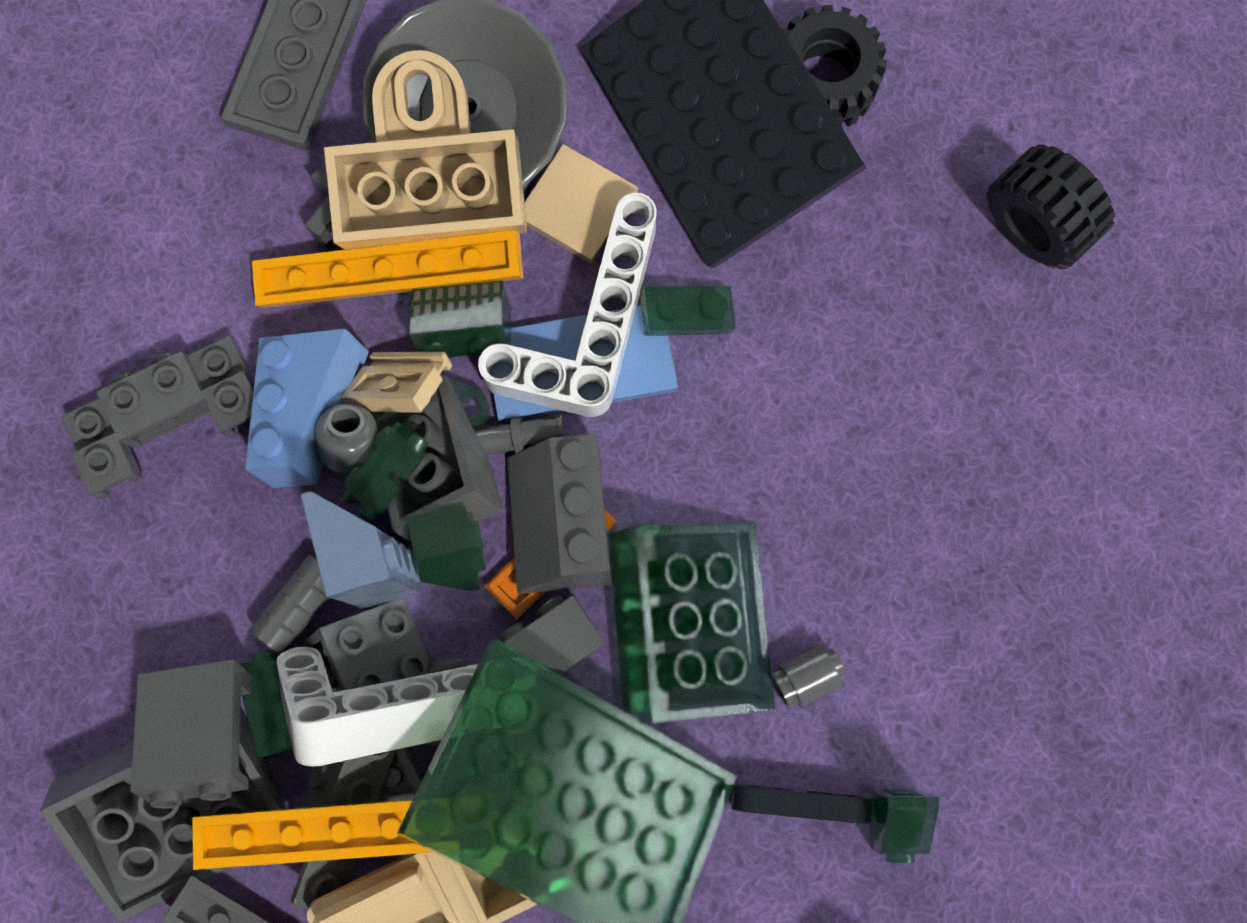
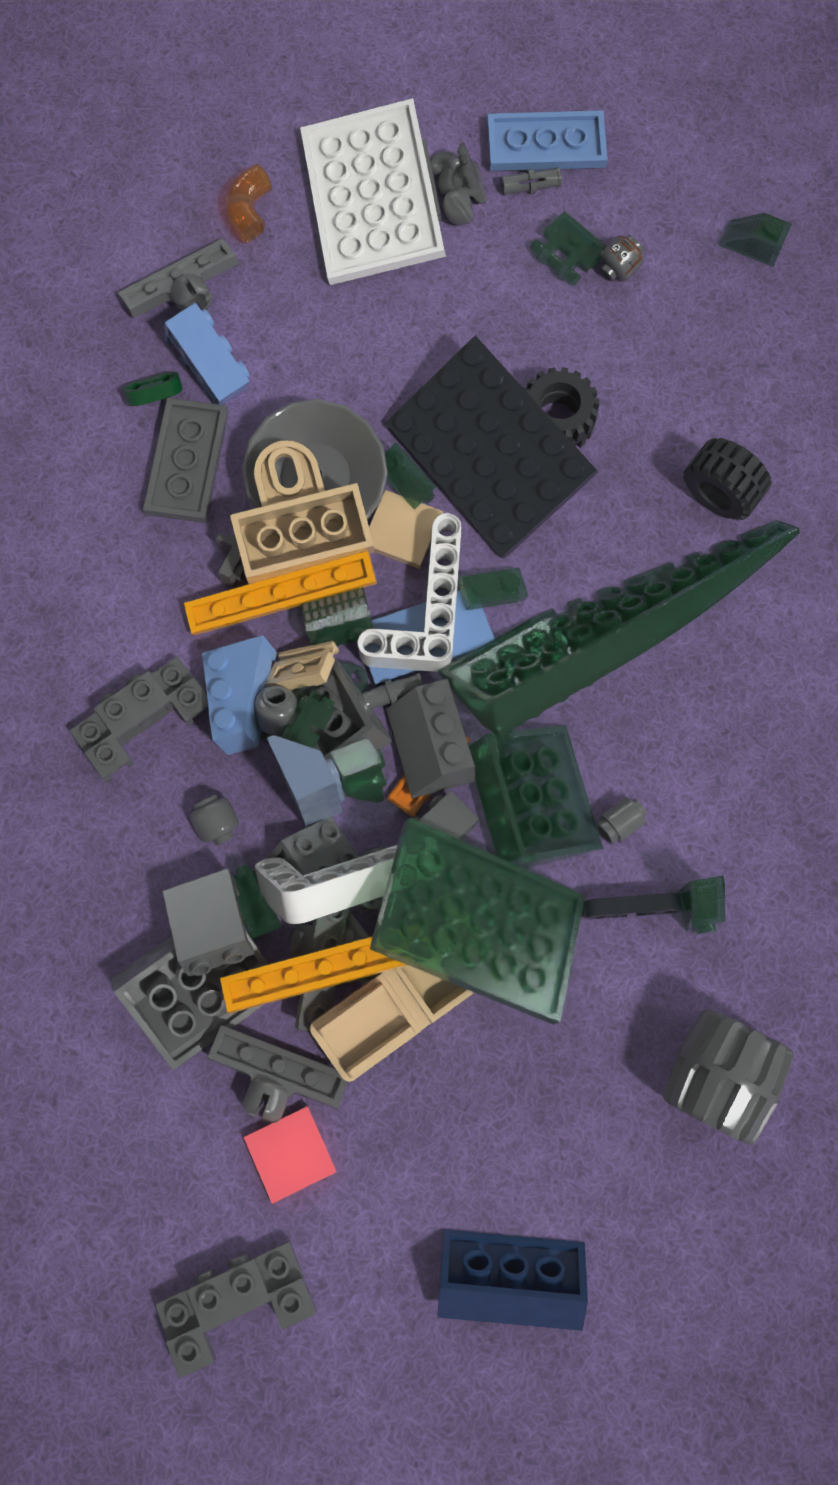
camera: 10 degrees left, 5 degrees down
(237, 577) = (214, 819): none -> dark grey head
(292, 607) = (258, 831): dark grey axle -> none
(596, 131) = (408, 477): none -> clear green hinge
(781, 418) = (568, 651): none -> clear green wedge

